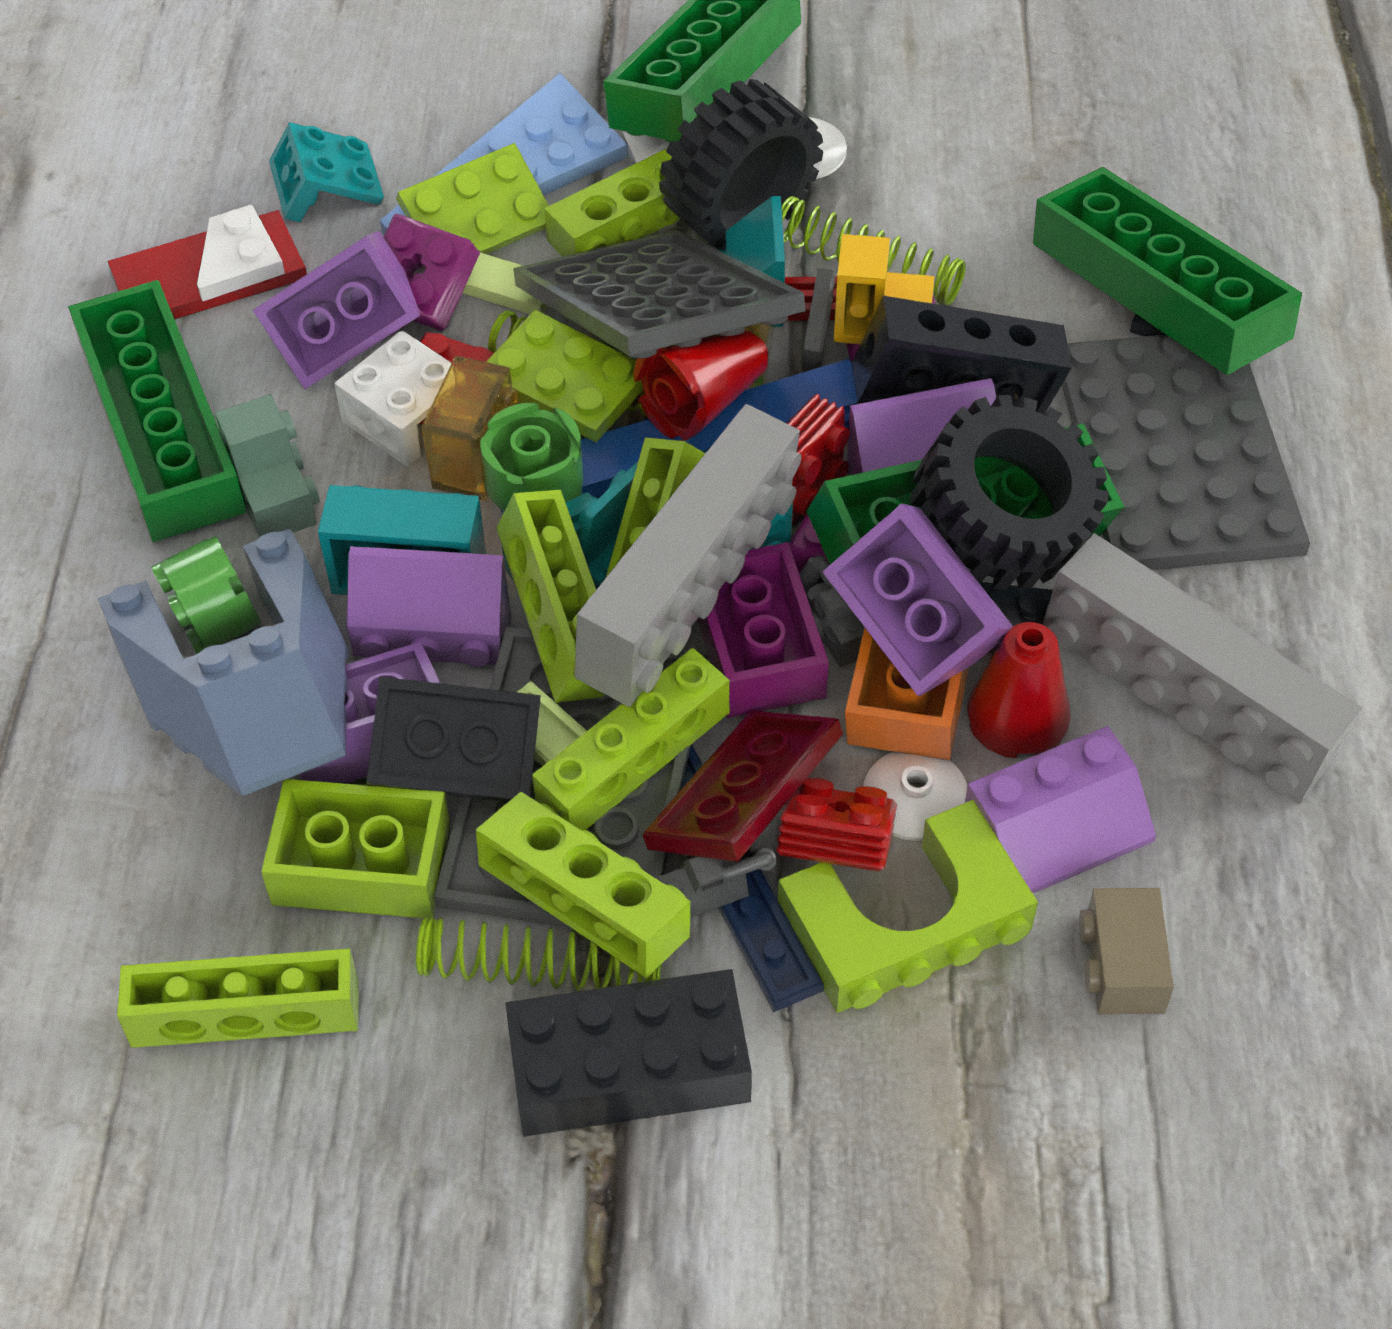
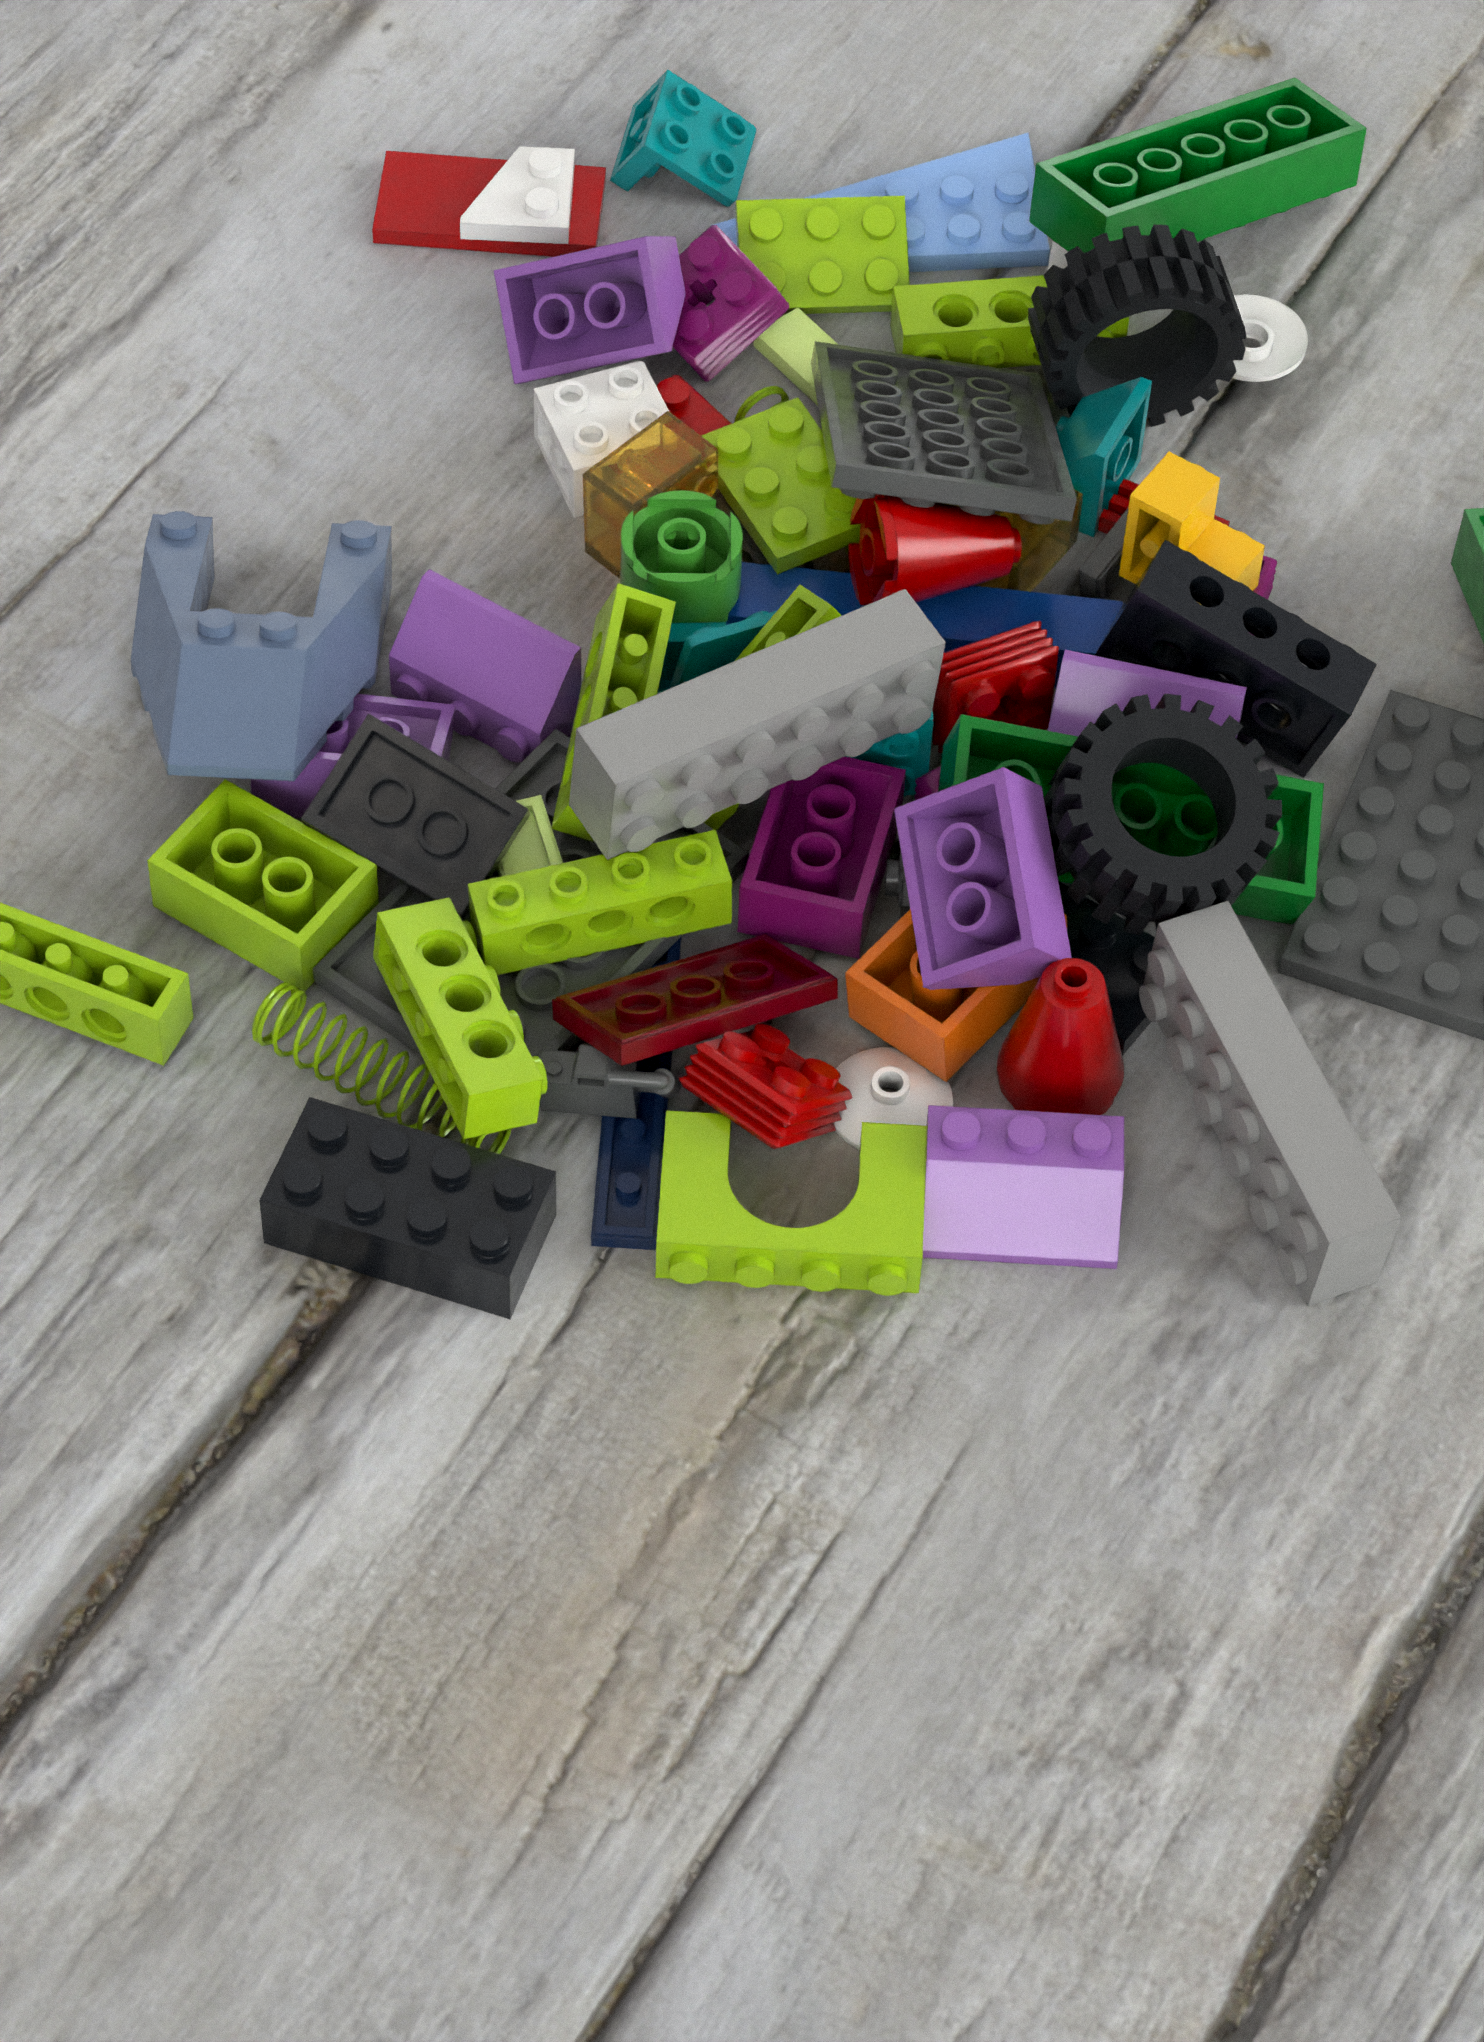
camera: 25 degrees right, 0 degrees up
(157, 411) = (334, 339): green brick -> none
(206, 595) = (268, 557): bright green brick -> none
(268, 466) = (412, 450): sand green brick -> none
(395, 521) = (505, 569): teal brick -> none
(945, 273) = (1309, 555): lime piece -> none
(1128, 951) = (993, 1355): dark tan brick -> none

